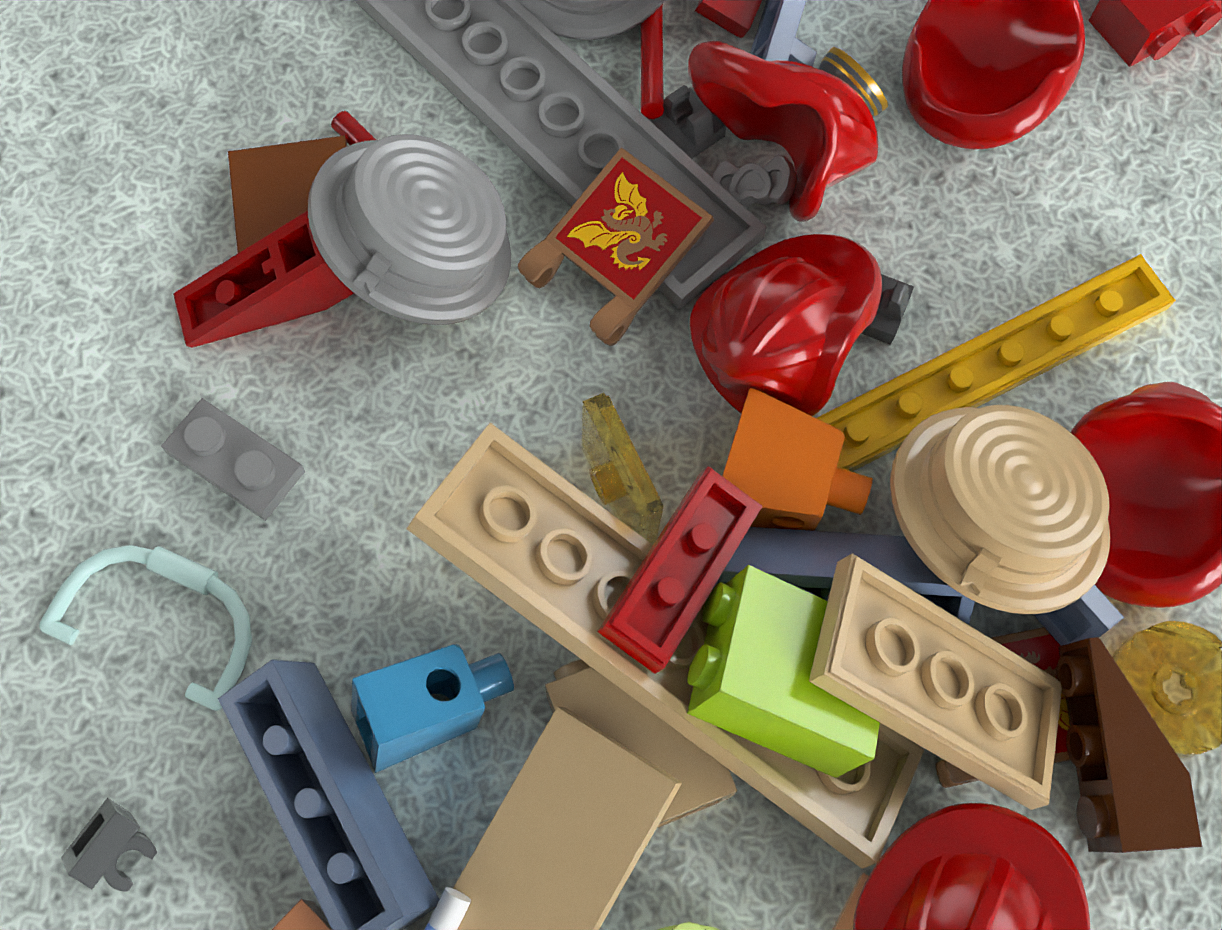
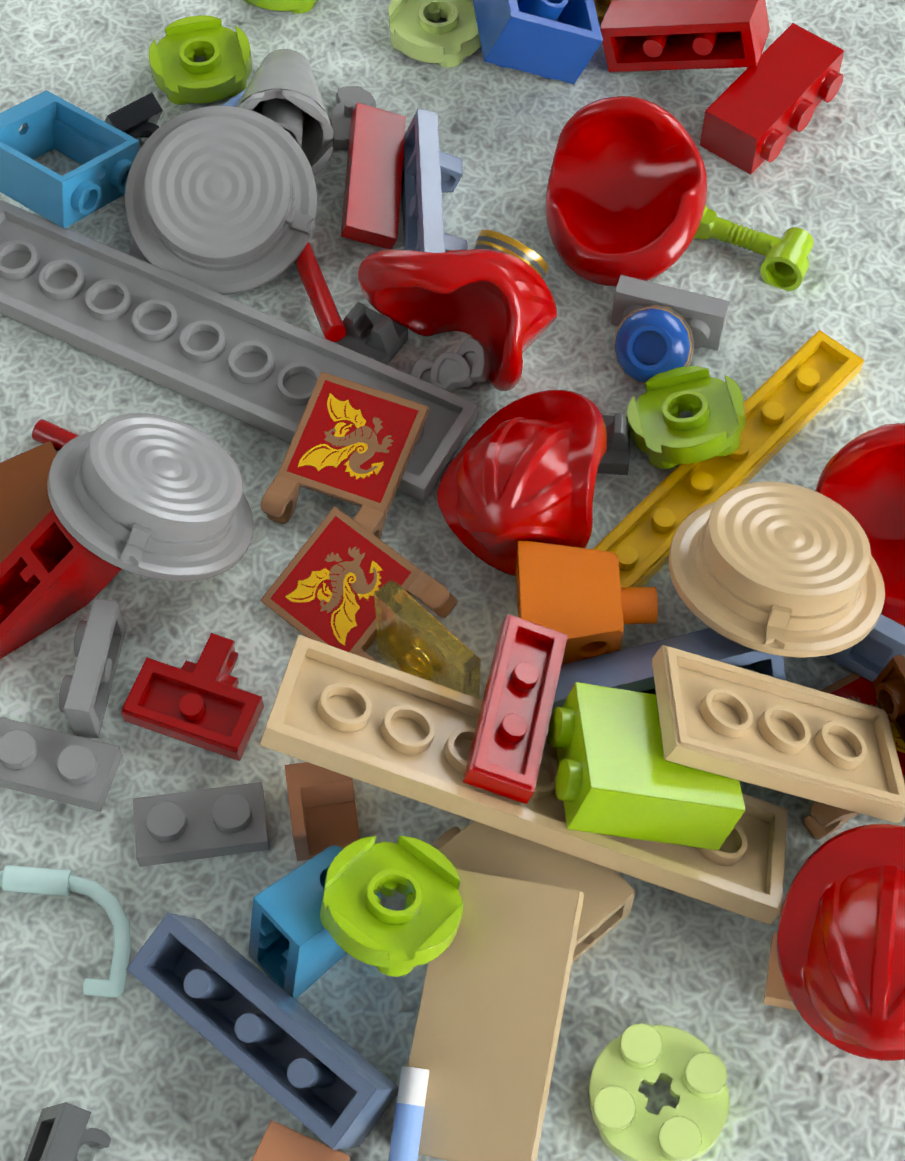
camera: 15 degrees left, 10 degrees down
(313, 363) = (97, 651): none -> light grey plate
(351, 566) = (200, 824): none -> light grey plate
(389, 442) = (197, 701): none -> red hinge
(461, 606) = (320, 809): none -> nougat panel
(470, 770) = (384, 936): none -> lime plate
(559, 367) = (333, 584): none -> flag
(964, 219) = (652, 342): none -> blue piece
(971, 333) = (674, 440): none -> lime plate
(993, 190) = (702, 313): none -> light grey plate
(1133, 165) = (785, 256): none -> lime brick

